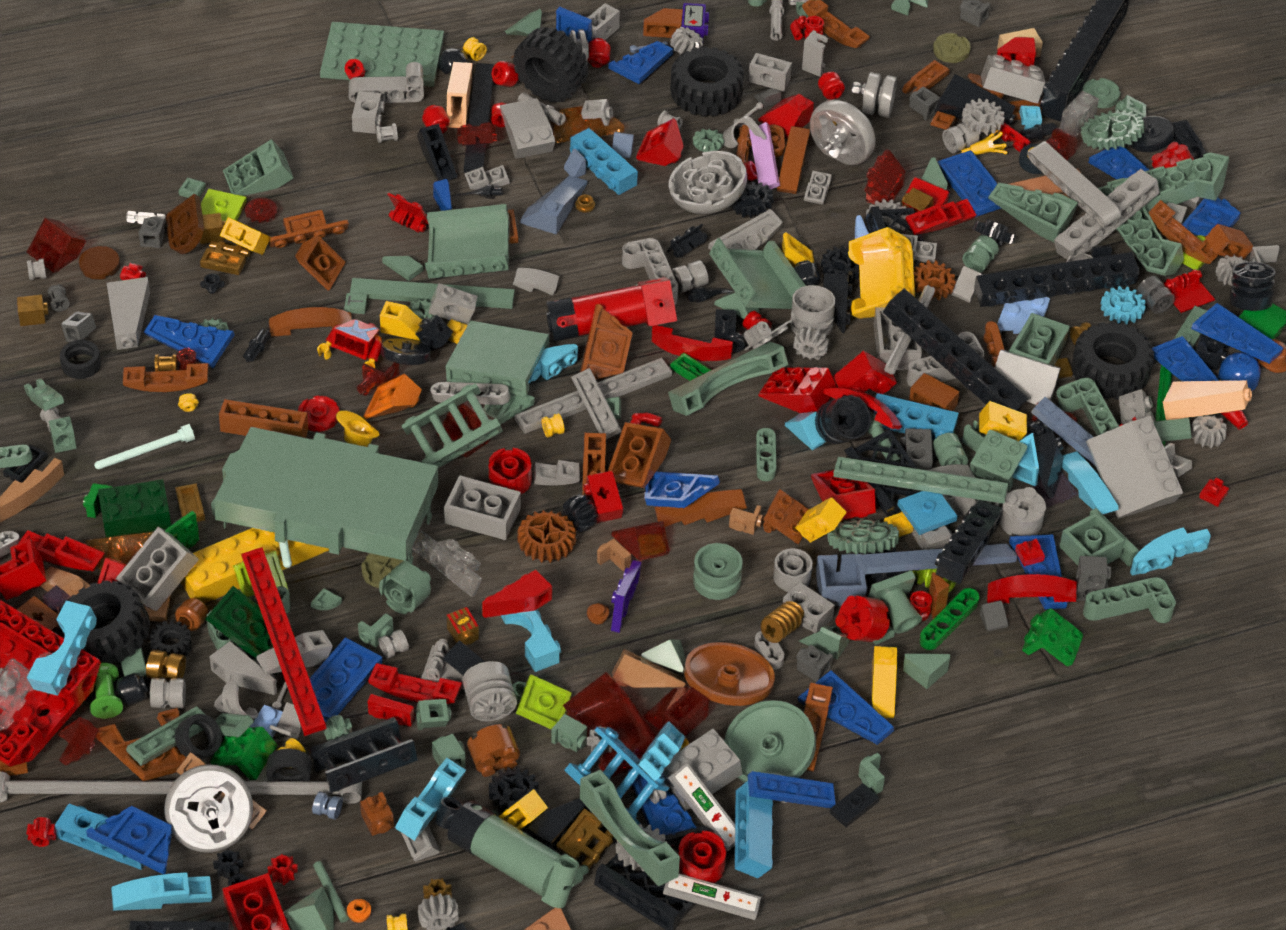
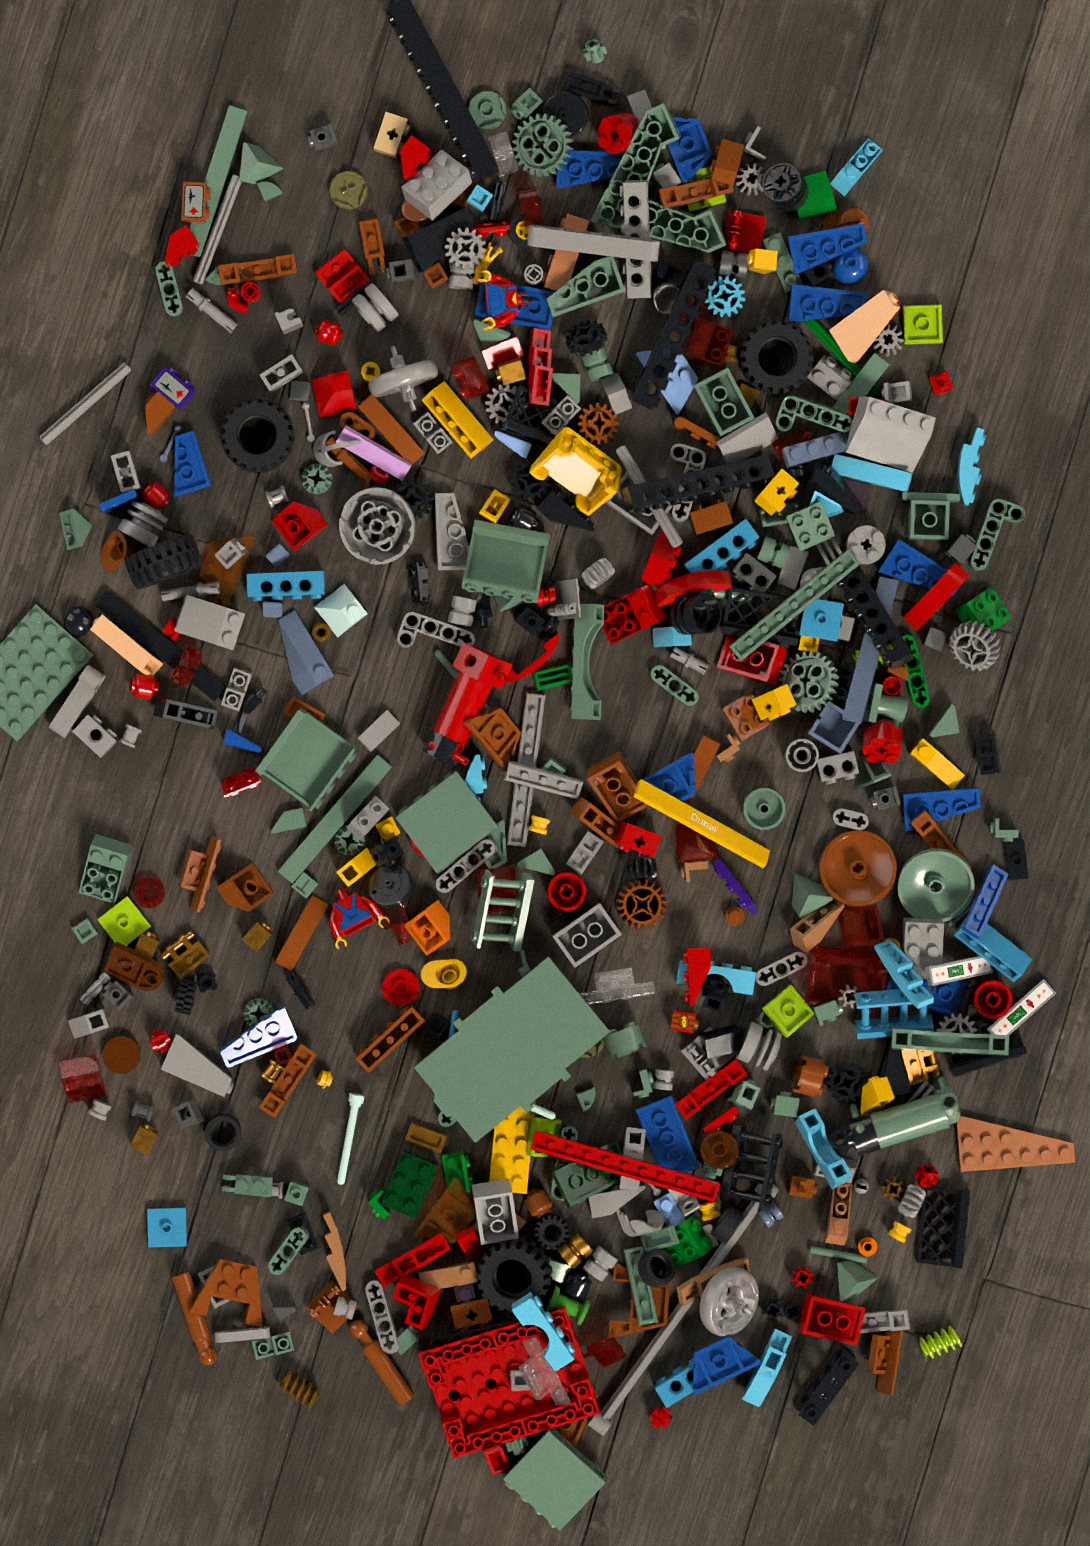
camera: 50 degrees left, 40 degrees up
(114, 225) = (89, 1023): none -> light grey slope
(183, 261) = (186, 996): none -> black tyre
(245, 236) = (179, 928): yellow brick -> none
(282, 292) = (257, 936): none -> pearl gold brick
(357, 71) = (38, 712): red wheel -> none
(359, 715) = (719, 1150): none -> reddish brown tile
(371, 863) = (839, 1214): none -> nougat slope
(413, 871) = (861, 1181): none -> light grey hinge
(474, 913) = (926, 1175): none -> red gear
(475, 49) = (78, 595): yellow wheel -> none
(504, 74) = (128, 594): red head -> none
(509, 634) = (716, 995): none -> black brick
(517, 437) = (538, 862): none -> sand green slope
(572, 669) = (791, 957): none -> light grey beam
(614, 209) = (340, 610): none -> light aqua slope
(638, 418) = (576, 749): red arm -> none
(661, 527) = (701, 823): none -> yellow tile
(685, 40) = (202, 416): light grey gear -> none
(782, 621) = (840, 799): pearl gold piece -> none
(798, 452) = (689, 660): none -> light grey pin
(812, 307) = (562, 540): light grey wheel -> none
(844, 191) = (457, 419): none -> yellow brick
(884, 68) = (341, 275): none -> red slope
(932, 717) = (988, 754): none -> black hinge
(947, 247) = (569, 384): none -> sand green slope
(966, 162) = (501, 300): none -> torso
(1008, 175) = (531, 276): none -> light grey wheel
(1018, 638) = (979, 642): none -> light grey gear
(1030, 552) = (905, 572): red tile -> none
(1074, 308) = (709, 342): none -> clear red slope
(1178, 302) = (762, 260): none -> yellow slope
(1217, 124) = (594, 51): none -> sand green gear
(1247, 449) = (922, 324): none -> lime plate

